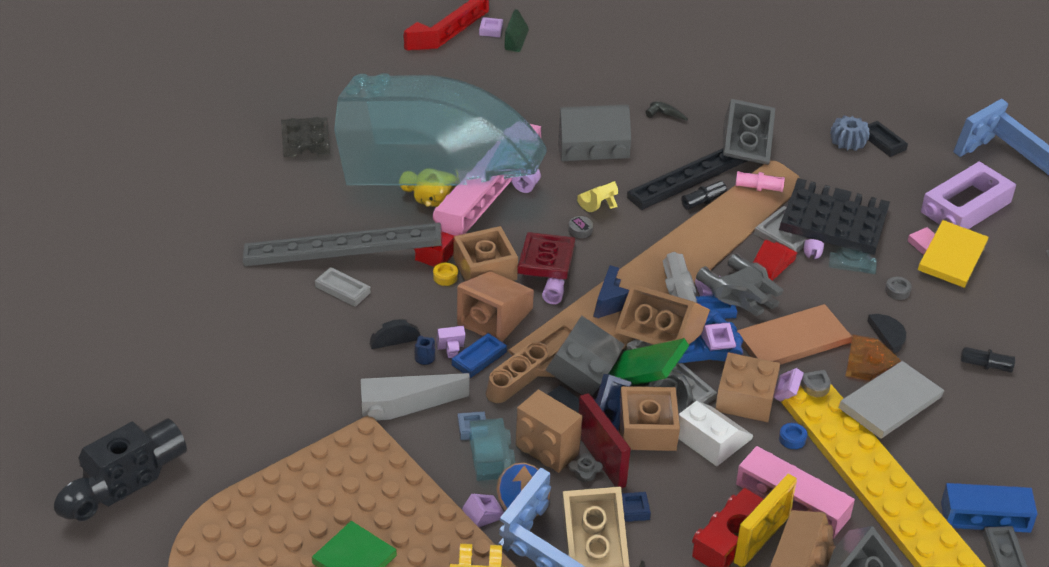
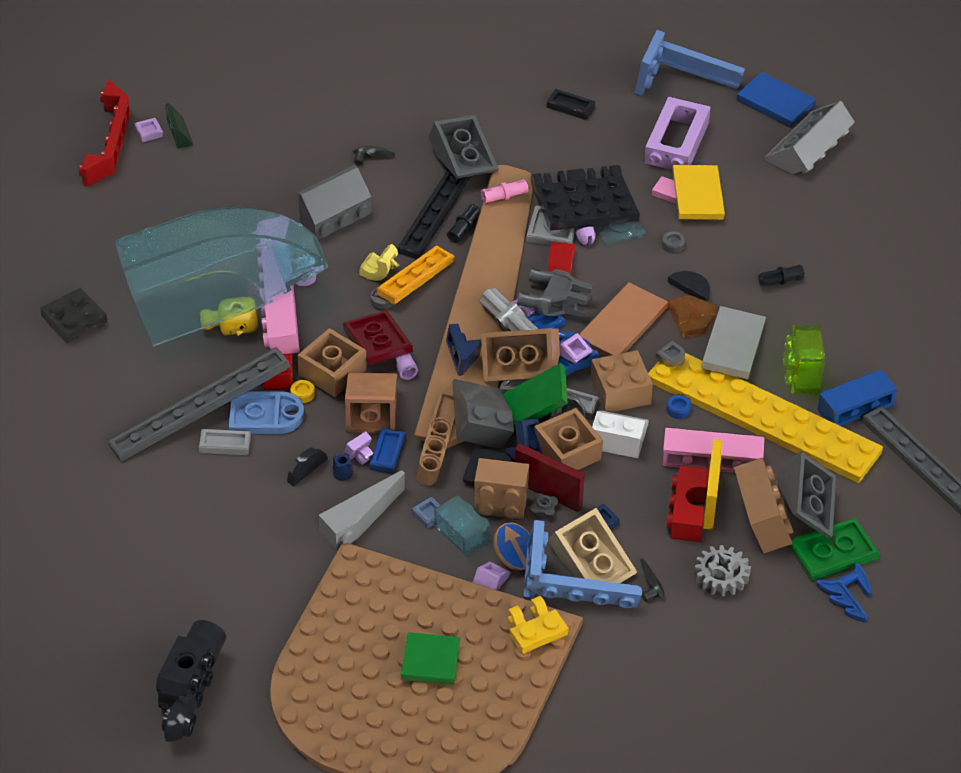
camera: 30 degrees left, 5 degrees up
(397, 277) = (265, 412): none -> medium blue tile
(624, 219) = (415, 275): none -> light orange tile
(788, 384) = (653, 363): lavender tile -> none
(849, 133) = (543, 111): sand blue gear -> none
(952, 443) = (804, 359): none -> clear neon green brick

